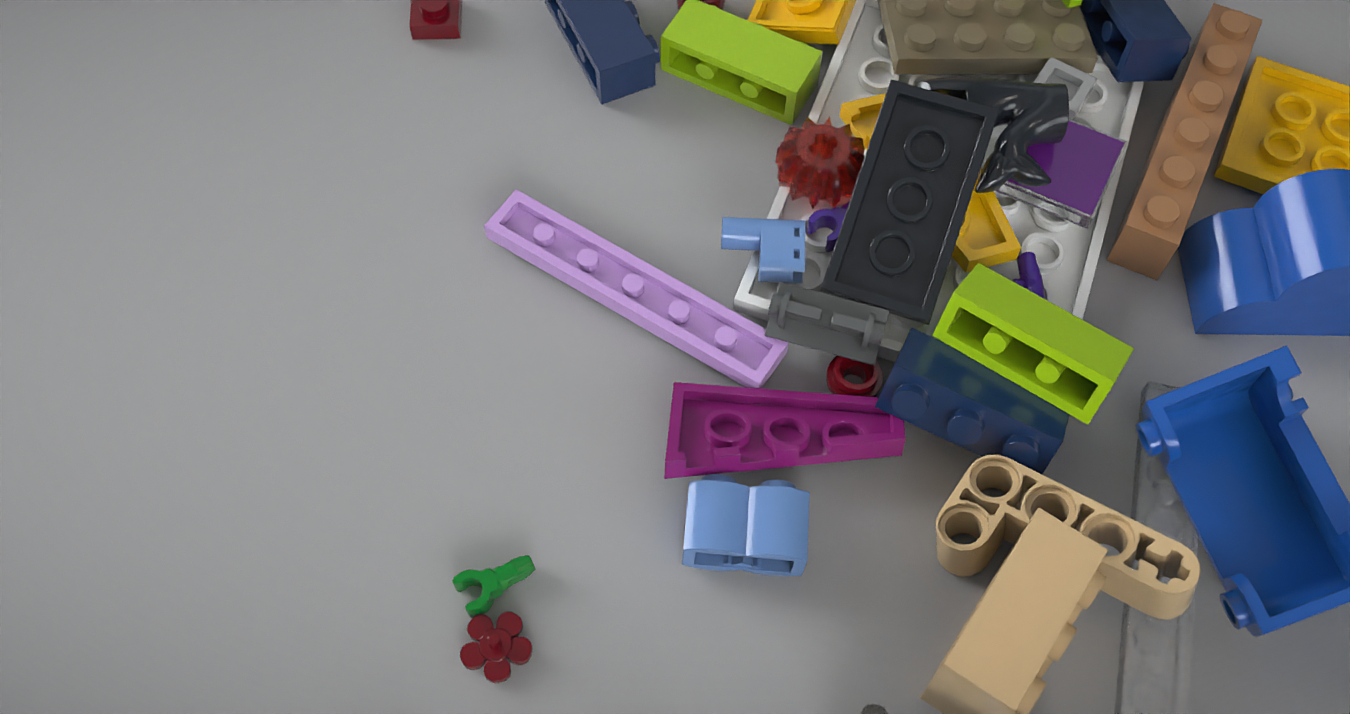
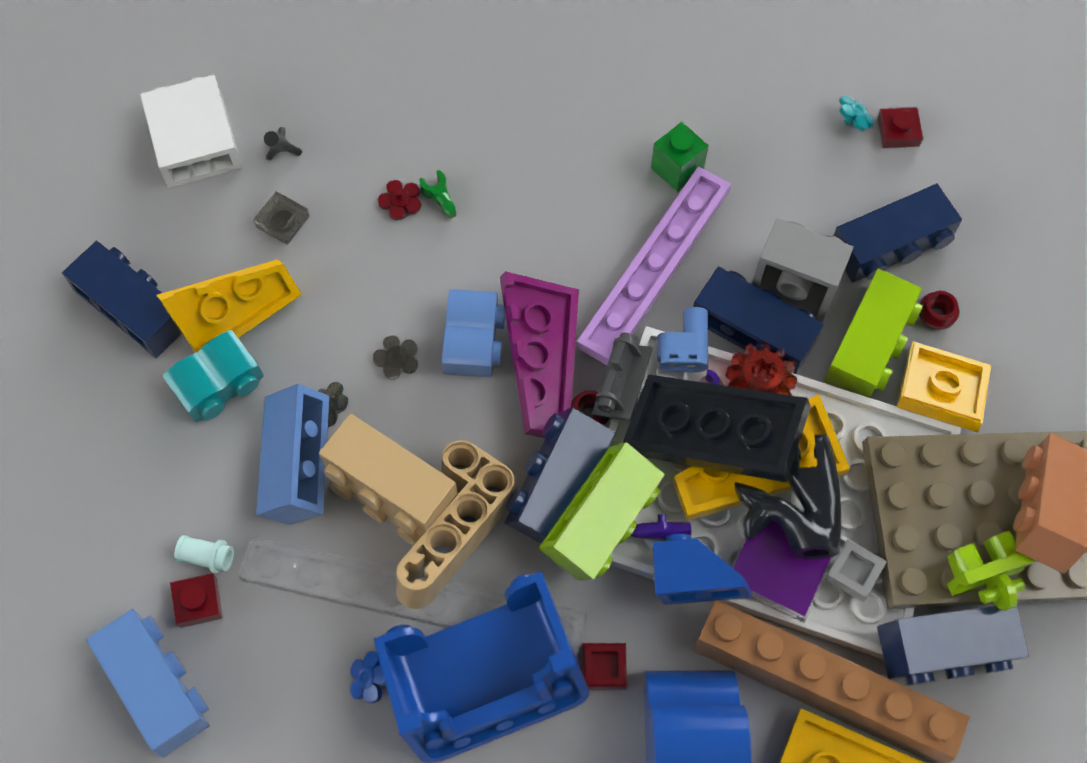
camera: 90 degrees right, 5 degrees up
(412, 54) = (855, 112): none -> teal plant
(466, 246) = (678, 155): none -> green brick
(661, 112) = (802, 266): none -> light grey brick
(719, 176) = (755, 315): none -> dark blue brick
(778, 644) = (396, 357): none -> clear smoke plant
(1102, 244) = (693, 573): none -> blue slope
(1196, 361) = (604, 666): none -> dark red tile
(1283, 664) = (368, 678): none -> blue plant

